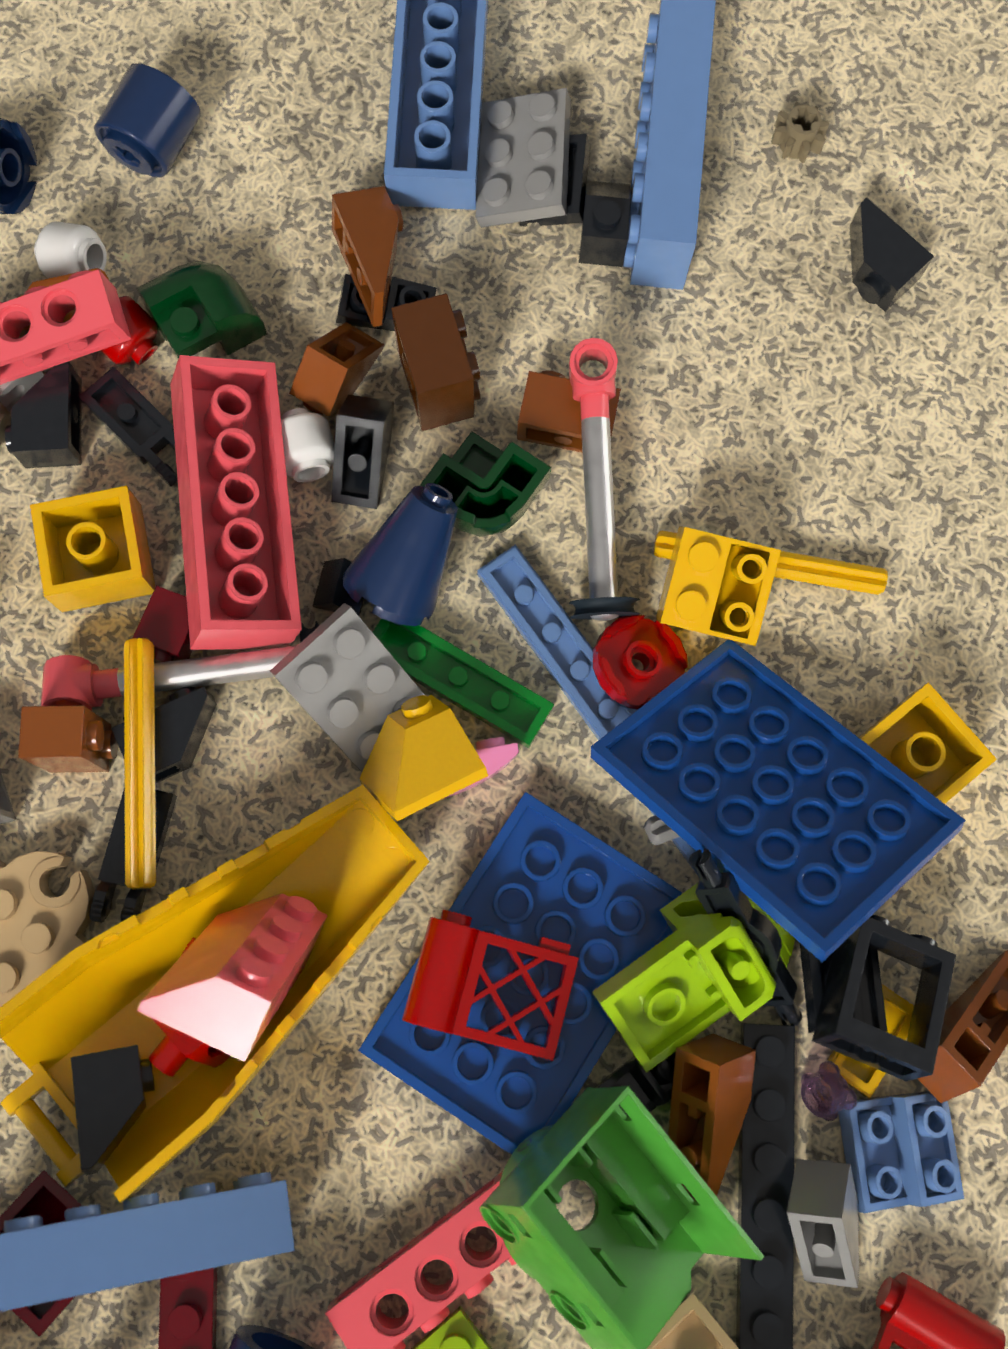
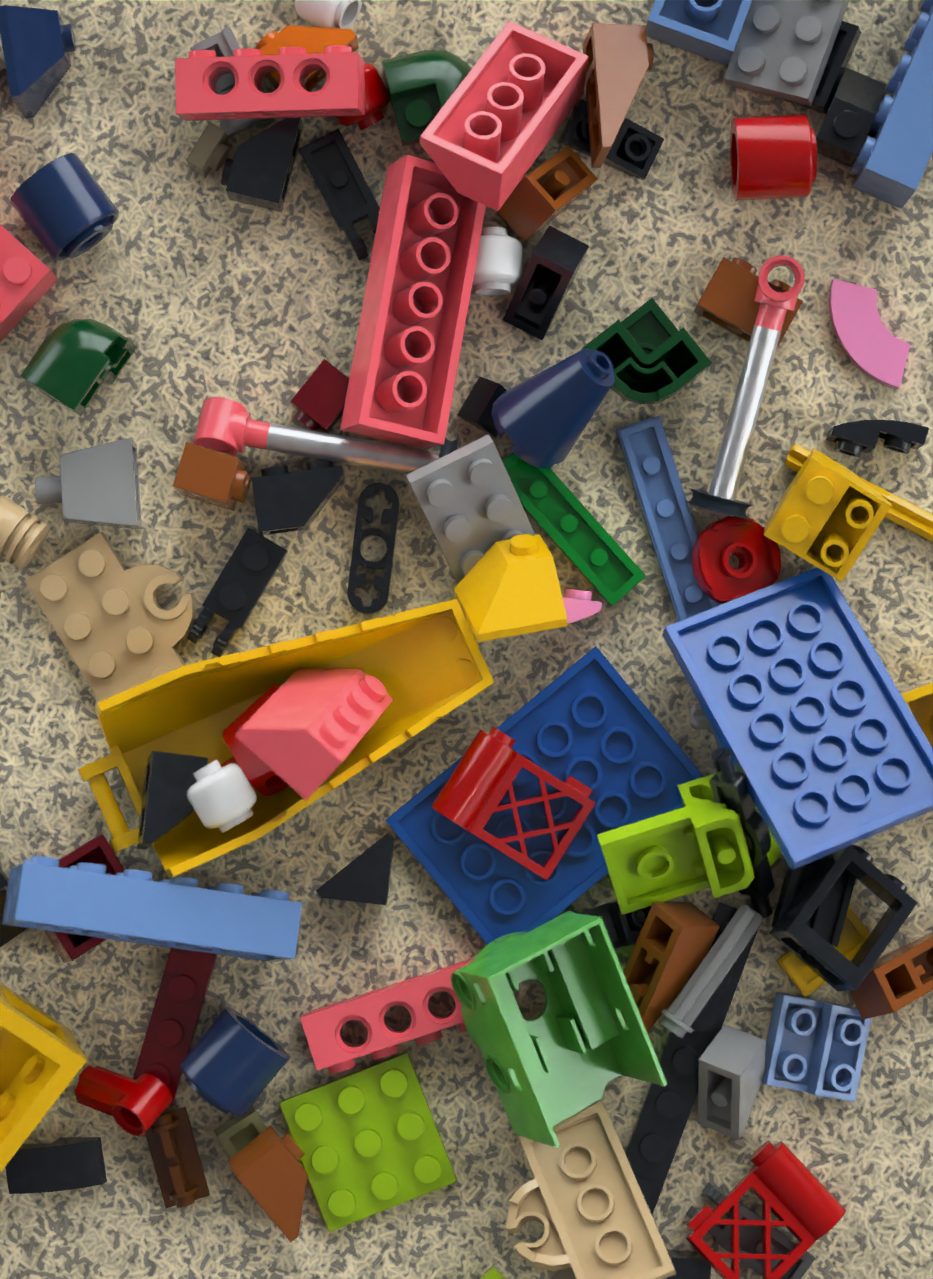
camera: 20 degrees right, 10 degrees up
(92, 549) = (276, 305): yellow brick -> none
(139, 764) = (270, 517): yellow axle -> none
(159, 1084) = (221, 796): none -> white head
(246, 731) = (388, 516): none -> black beam
(269, 297) = (505, 113): none -> coral slope
(355, 1122) = (365, 877): none -> black slope
(436, 361) = (638, 222): reddish brown brick -> none
(545, 268) = (772, 157): none -> red piece
(690, 411) = (864, 336): none -> bright pink tile
(722, 501) = (862, 436): none -> black slope
(763, 1105) = (711, 971): none -> light grey axle
(827, 1092) = (769, 980): plate -> none

